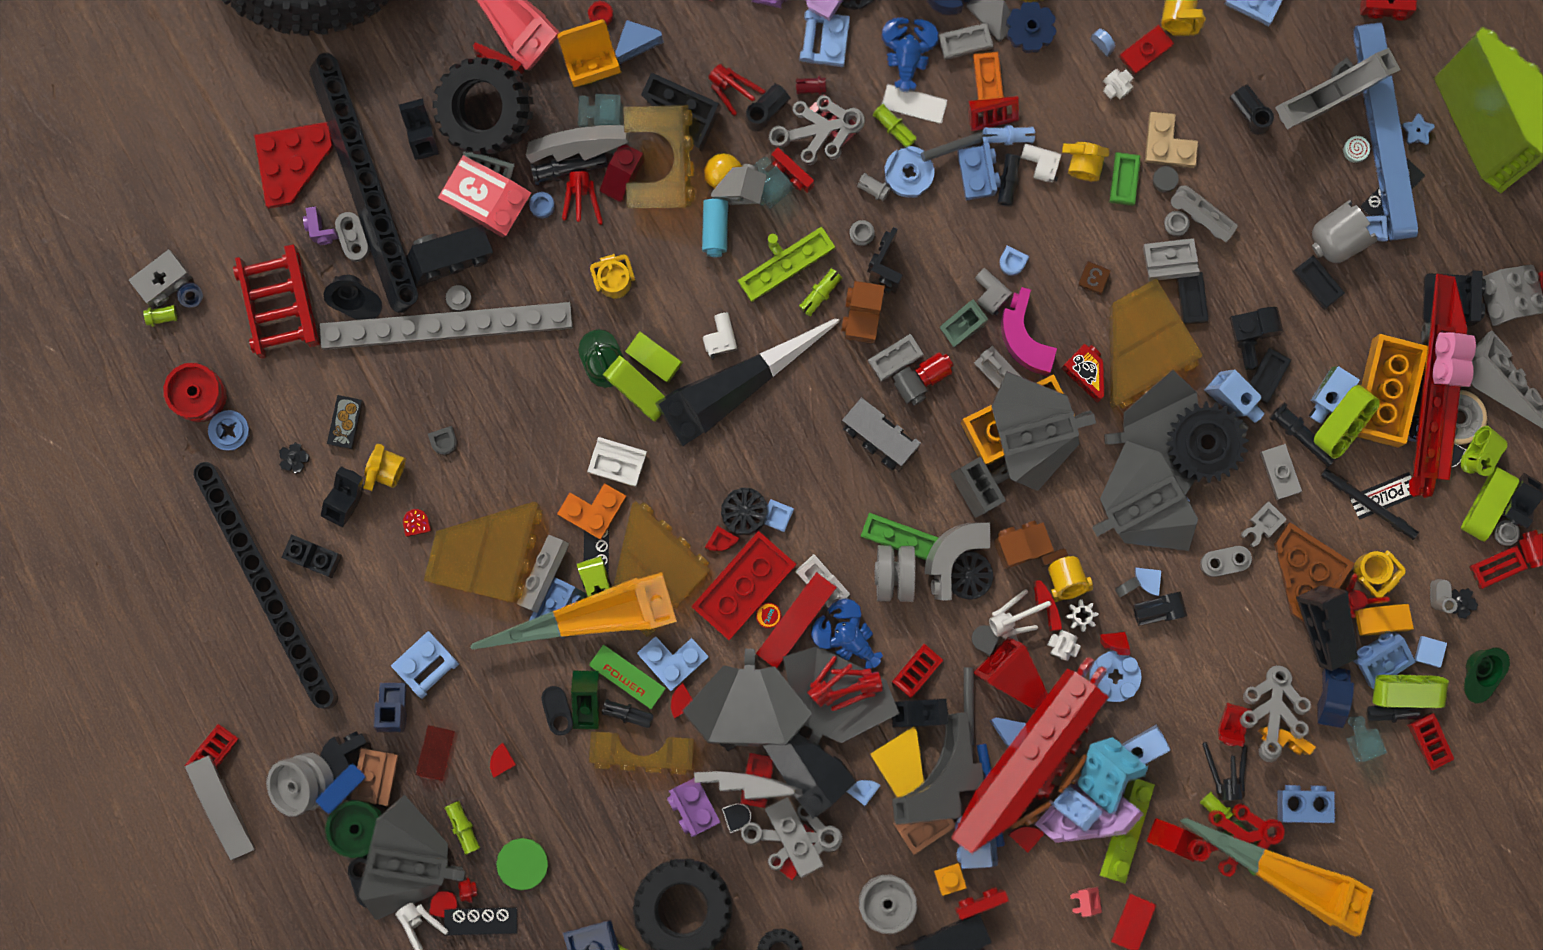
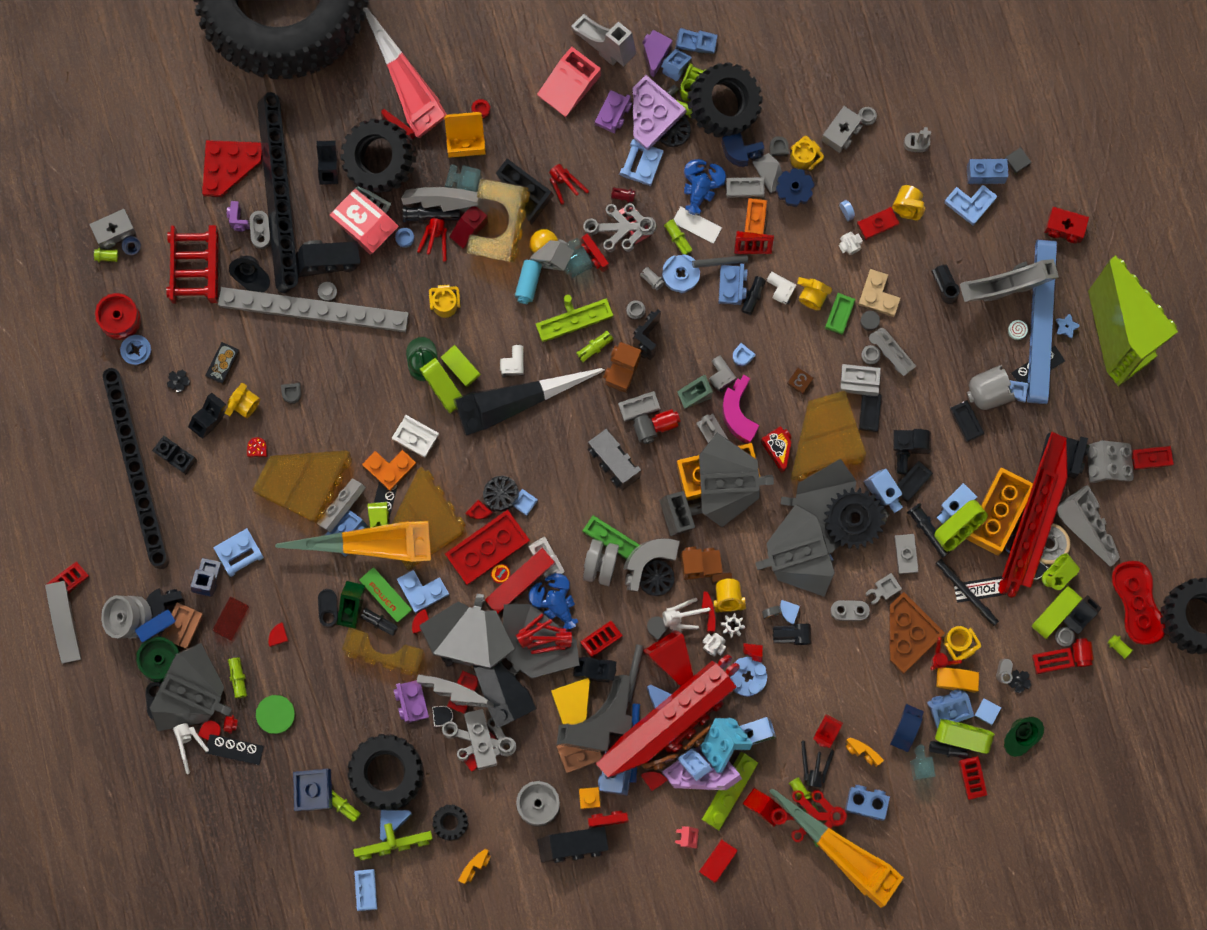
camera: 10 degrees right, 5 degrees down
(636, 40) = (502, 133): medium blue slope -> none
(767, 106) = (587, 201): black piece -> none
(863, 790) = (540, 718): light blue tile -> none
(1009, 135) = (761, 262): light blue pin -> none
(1275, 708) = (860, 725): light grey plant -> none
(1329, 625) = (914, 673): black wedge -> none
(1454, 359) = (1050, 497): bright pink brick -> none

